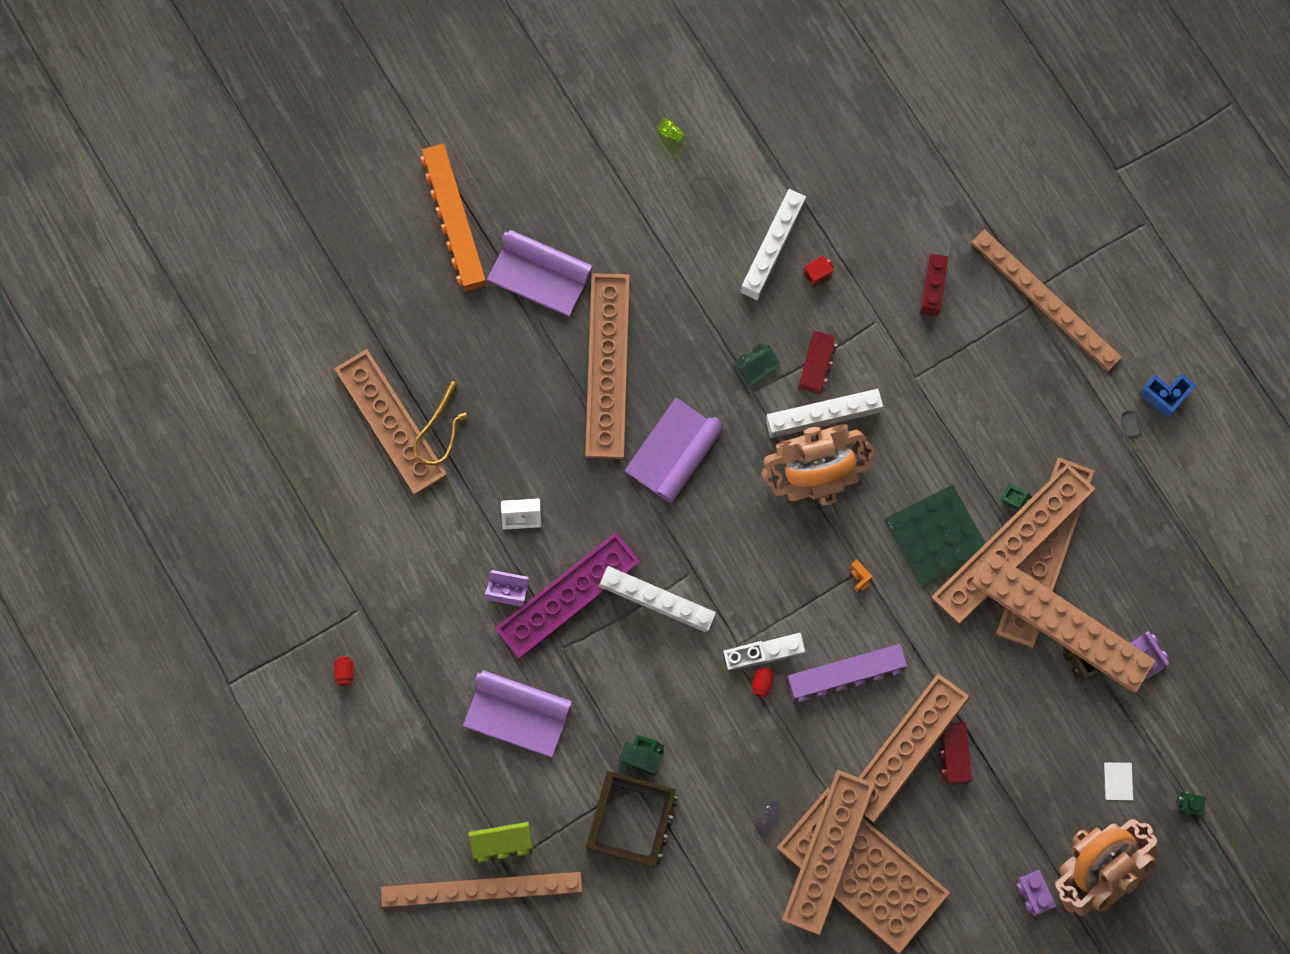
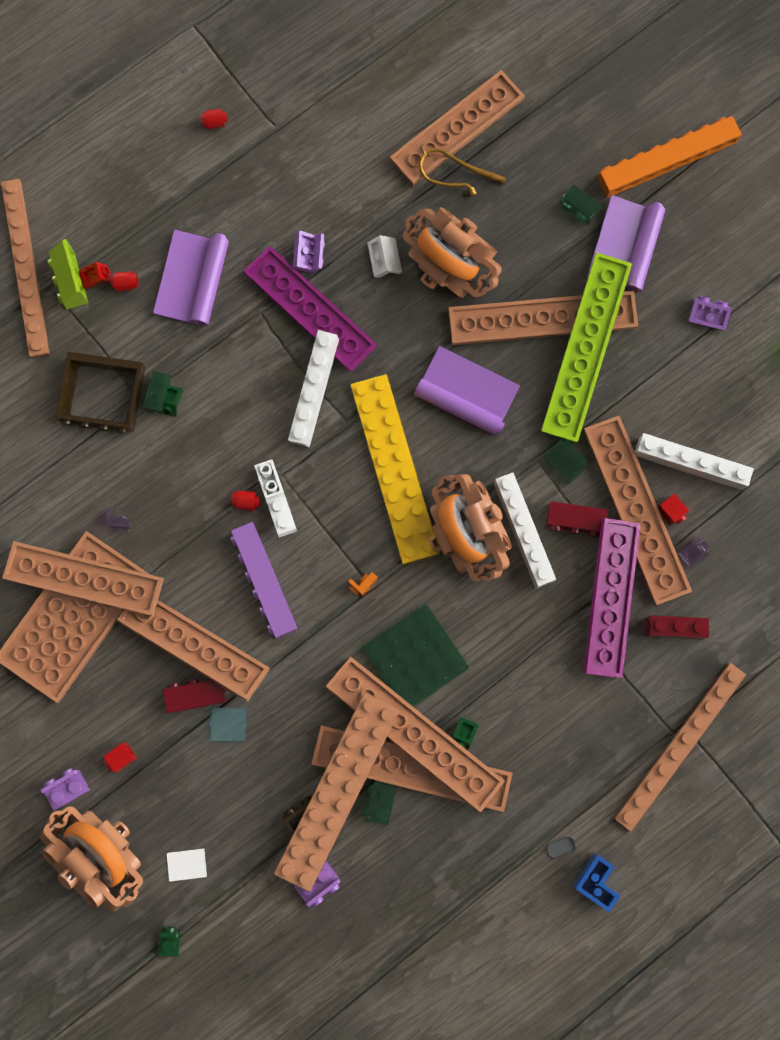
camera: 85 degrees right, 5 degrees up
(491, 311) = (580, 205): none -> clear green bracket
(501, 812) = (94, 274): none -> red bracket
(513, 783) = (124, 281): none -> red brick
(532, 443) = (451, 252): none -> nougat piece
(623, 204) = (710, 313): none -> medium lavender bracket
(646, 326) = (586, 347): none -> lime plate
(744, 532) = (394, 468): none -> yellow plate
(813, 304) = (636, 504): none -> nougat plate
(861, 257) = (694, 551): none -> clear purple bracket
(900, 339) = (612, 598): none -> magenta plate
(985, 725) = (228, 724): none -> clear light blue piece
(1010, 834) = (119, 758): none -> red brick
(1075, 586) = (380, 802): none -> clear green bracket

